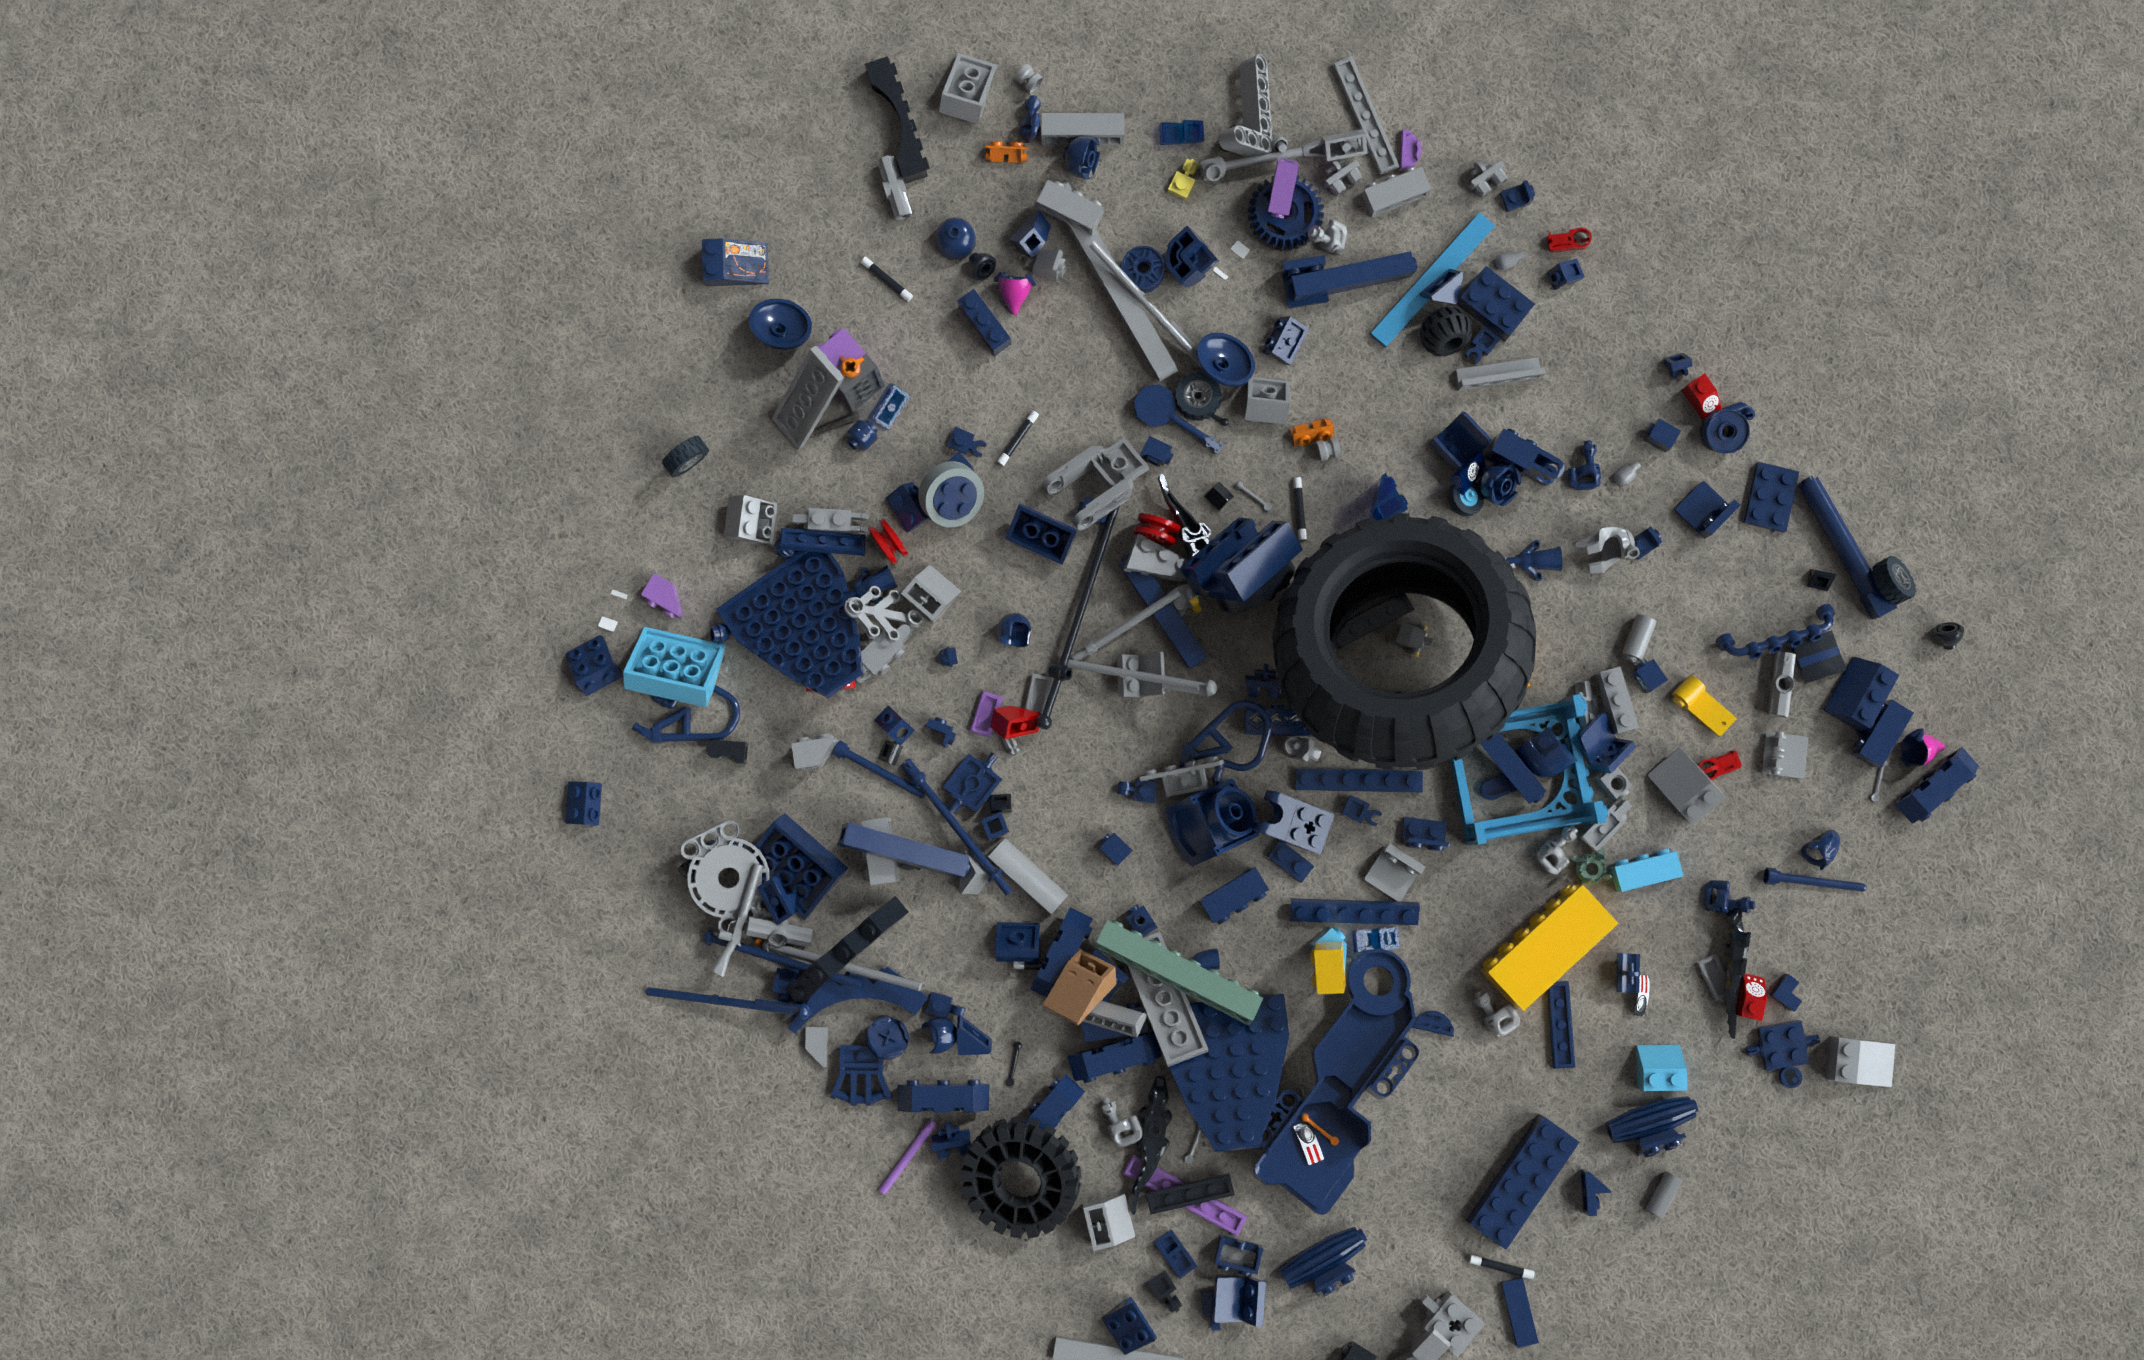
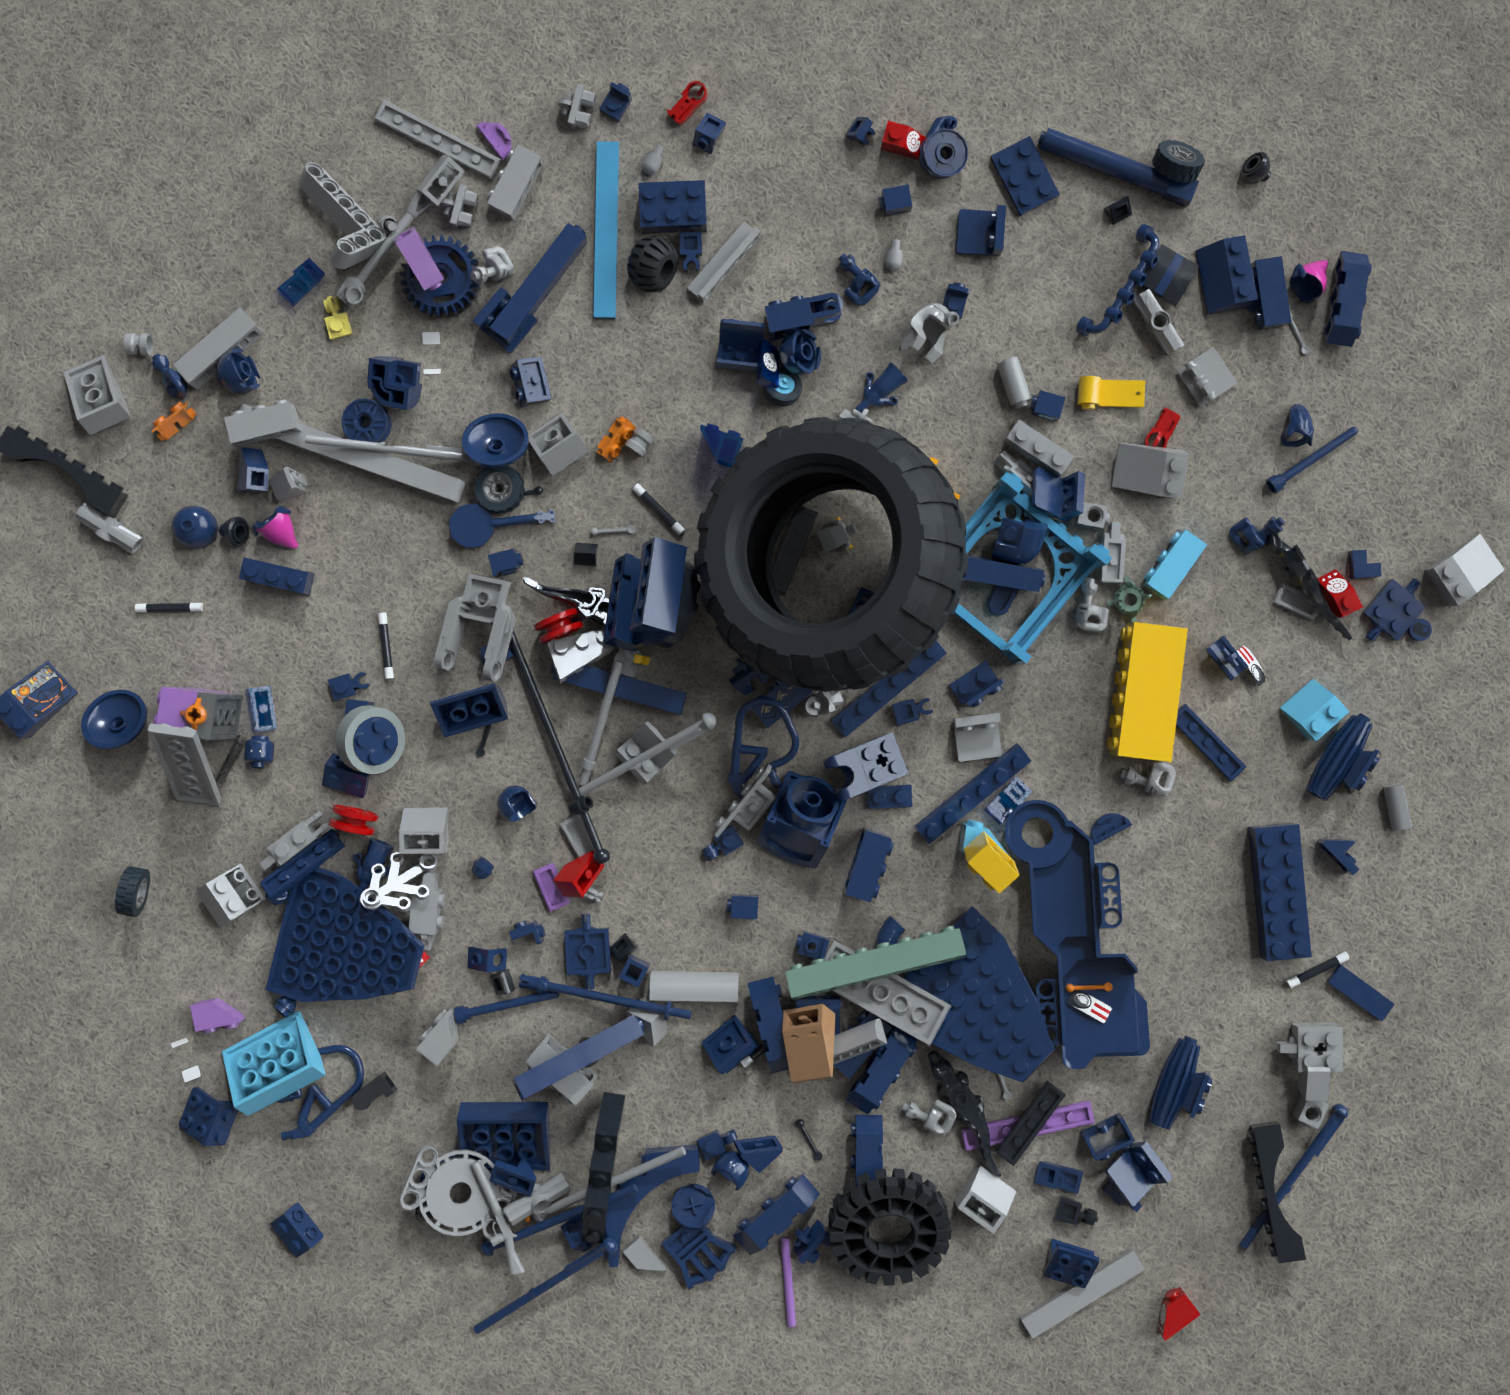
camera: 40 degrees left, 5 degrees up
(1020, 572) = (480, 751): none -> black hinge
(1445, 287) = (621, 229): dark blue slope -> none

